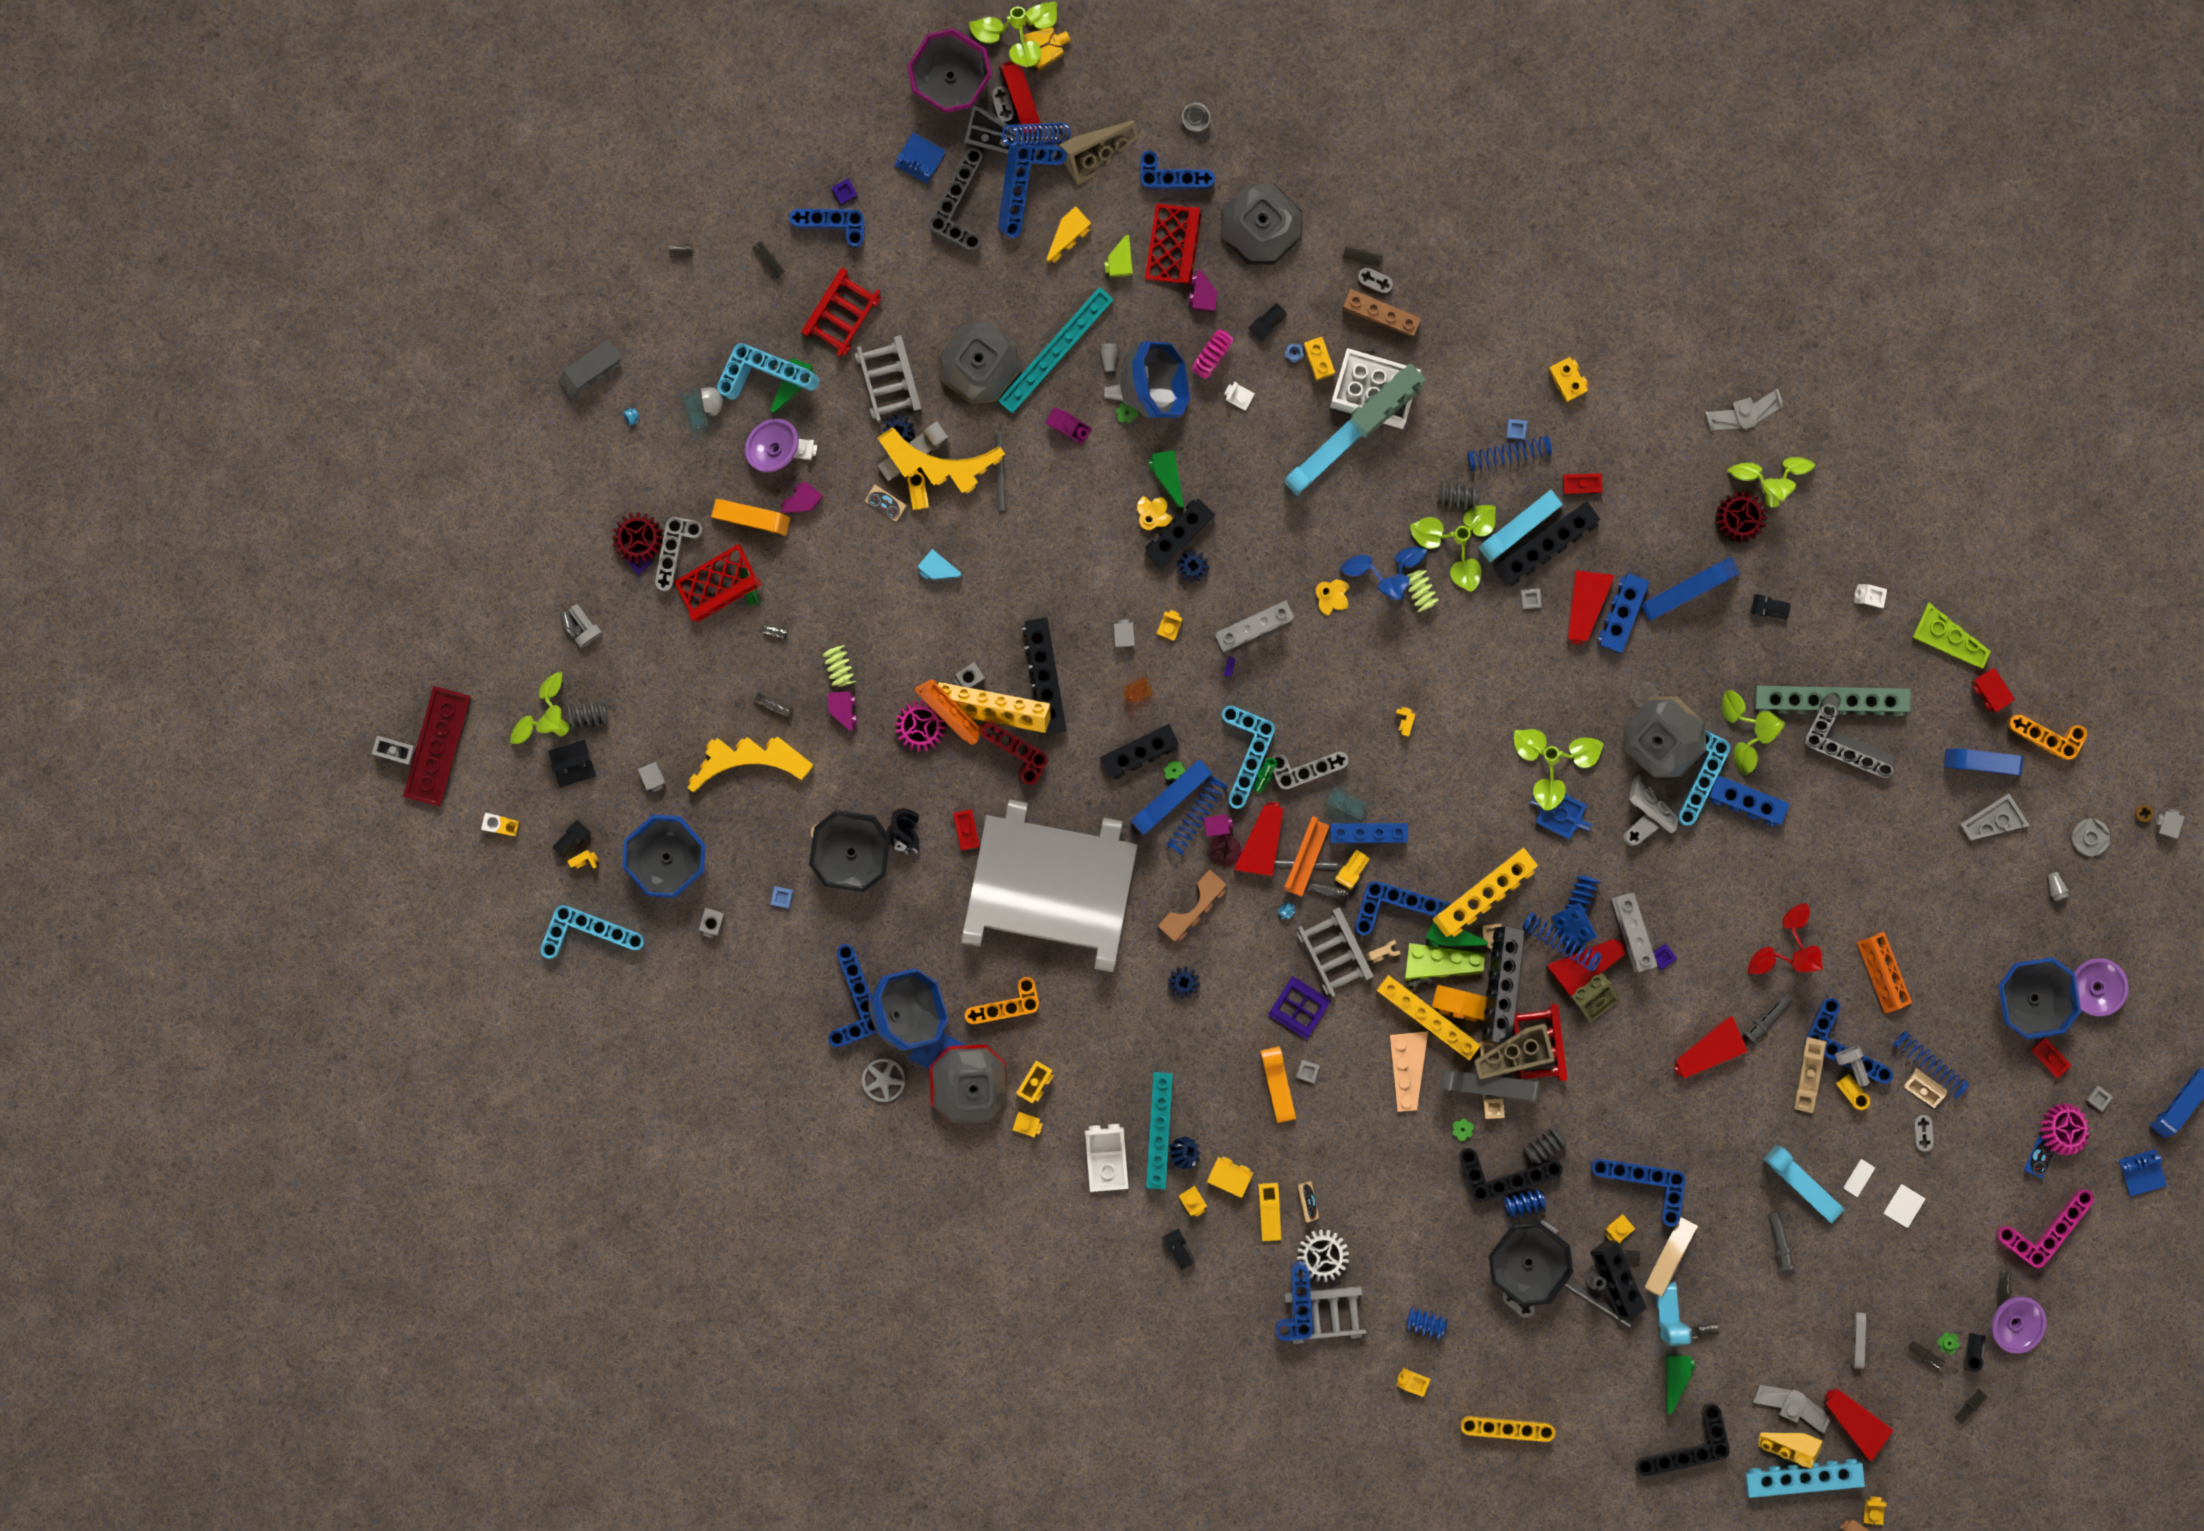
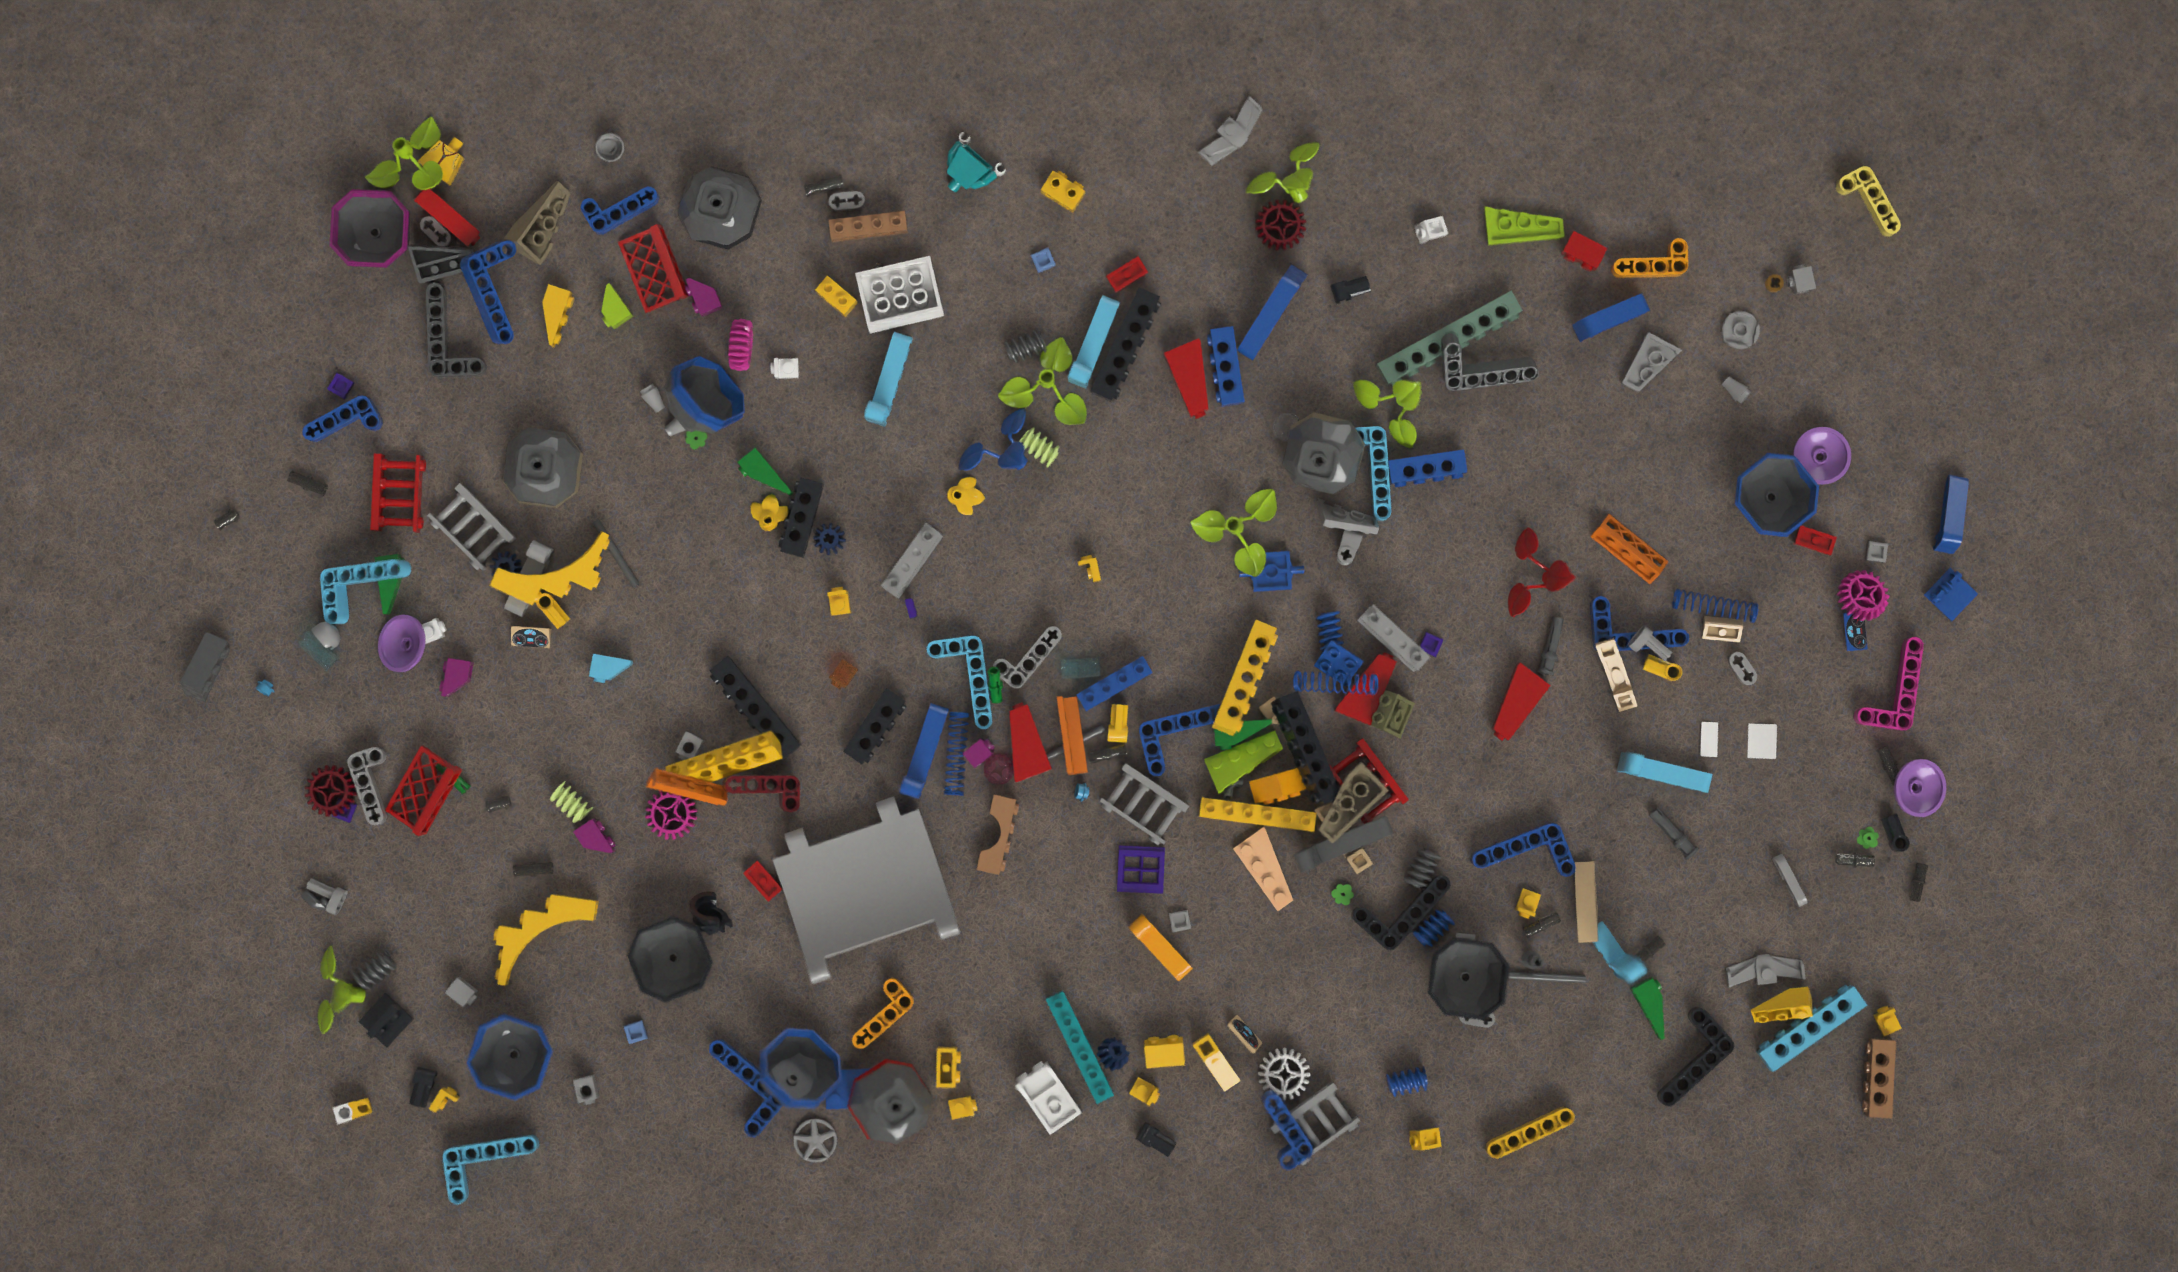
camera: 30 degrees left, 0 degrees up
(394, 750) = (222, 1098): light grey brick -> none
(437, 746) = (258, 1073): dark red plate -> none
(750, 516) = (419, 715): light orange beam -> none
(919, 158) = (389, 319): blue hinge -> none
(1054, 129) = (492, 223): blue piece -> none
(1055, 350) = (603, 419): teal plate -> none
(1068, 425) = (651, 478): magenta slope -> none
(1124, 634) = (803, 632): light grey brick -> none
(1174, 770) = (914, 725): bright green plant -> none
(1178, 979) = (1034, 904): dark blue gear -> none
(1264, 325) = (773, 292): black piece -> none
(1289, 352) = (807, 303): medium blue plate -> none
(1377, 954) = (1181, 786): tan plate -> none
(1388, 400) = (915, 298): sand green wedge -> none
(1497, 312) = (968, 167): none -> teal torso
(1531, 598) = (1139, 399): light grey tile -> none
(1546, 440) = (1074, 255): blue piece -> none
(1619, 1280) = (1552, 948): black brick -> none
(1862, 1426) = (1834, 953): red slope -> none

